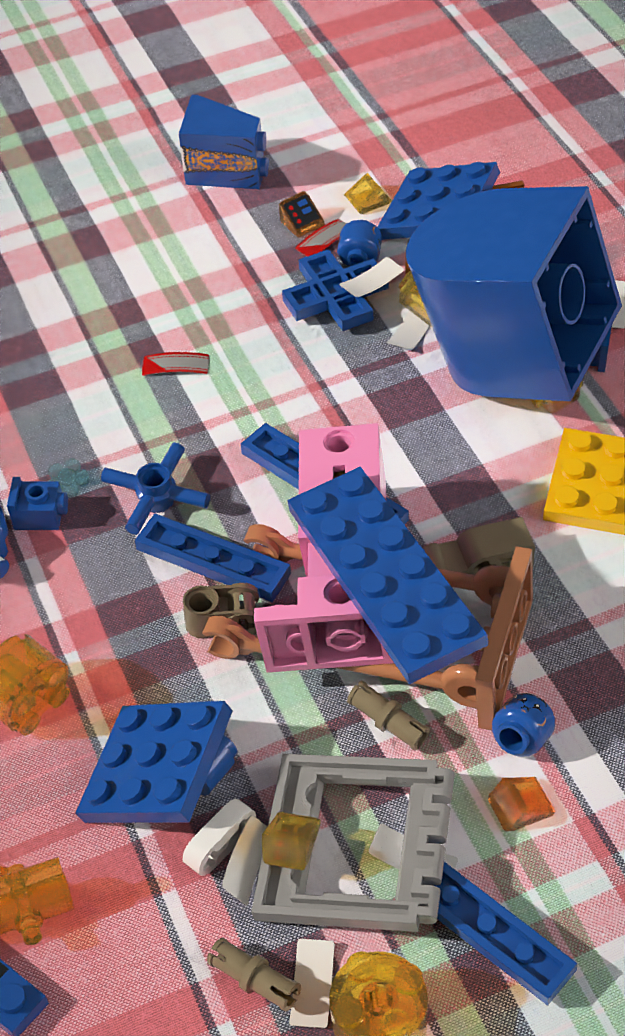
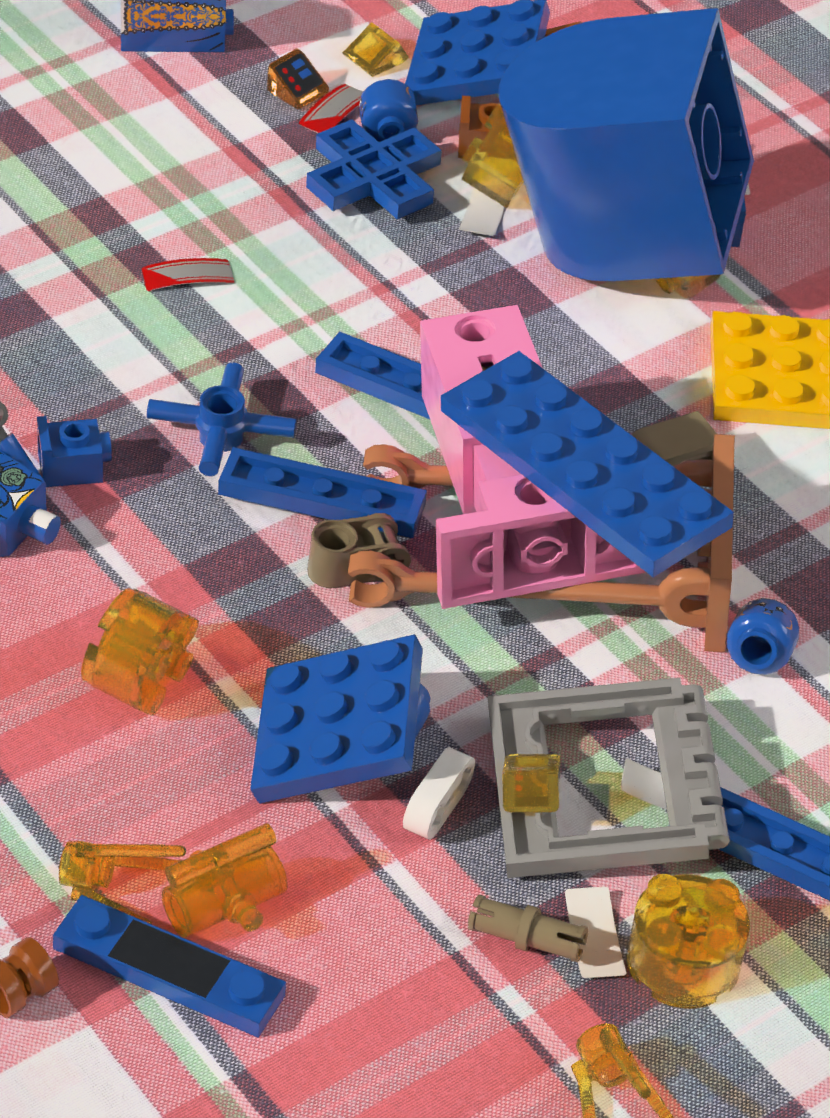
camera: 20 degrees left, 5 degrees down
(70, 476) = (96, 409): clear light blue plant -> none
(245, 861) = (478, 811): white sticker -> none
(373, 278) = (423, 150): white sticker -> none
(388, 715) = (598, 644): dark tan pin -> none
(519, 802) = (777, 721): clear orange slope -> none

